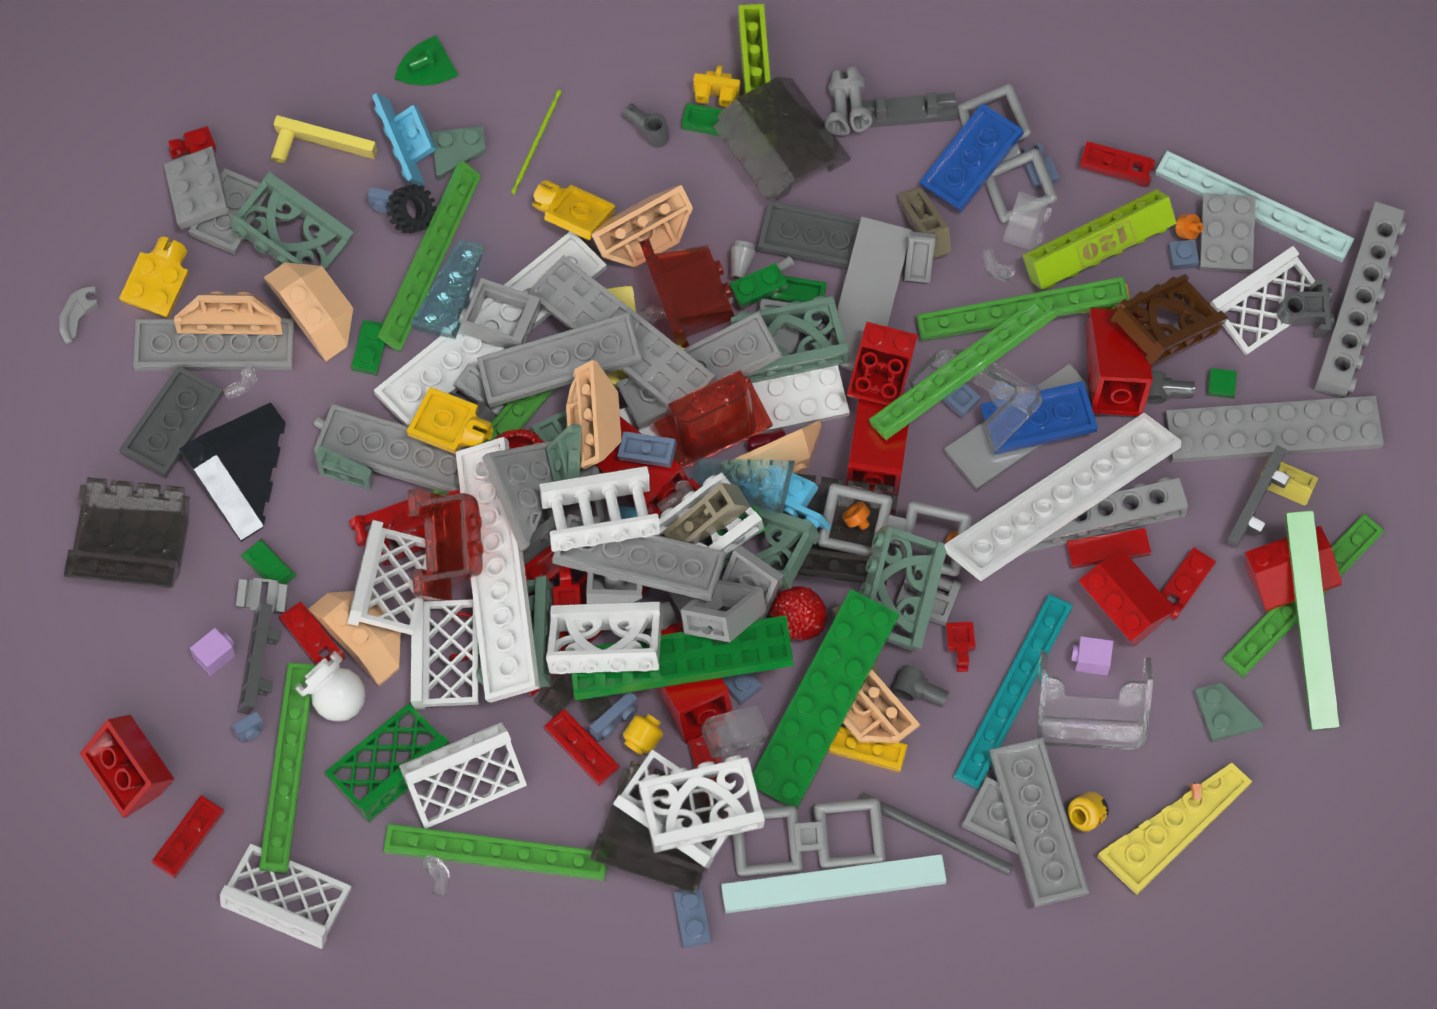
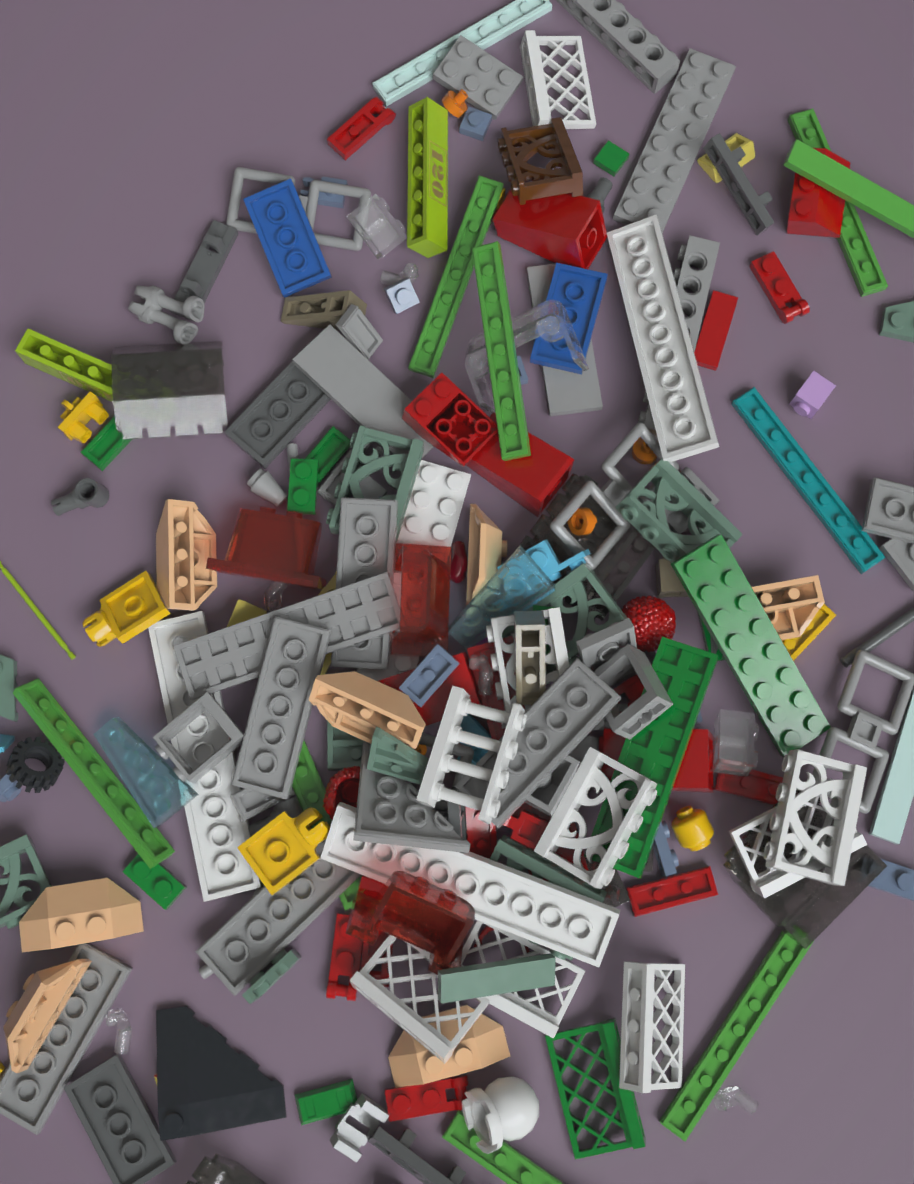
camera: 60 degrees left, 10 degrees up
(434, 626) = (496, 978): none -> sand green tile
(912, 685) = (764, 560): dark grey pin -> none
(960, 639) = (740, 496): red plate -> none
(978, 275) = (401, 295): none -> plate
(1093, 720) = (873, 420): clear windscreen -> none
(1127, 596) = (775, 337): red slope -> none
(1311, 308) = (587, 50): dark grey pin -> none

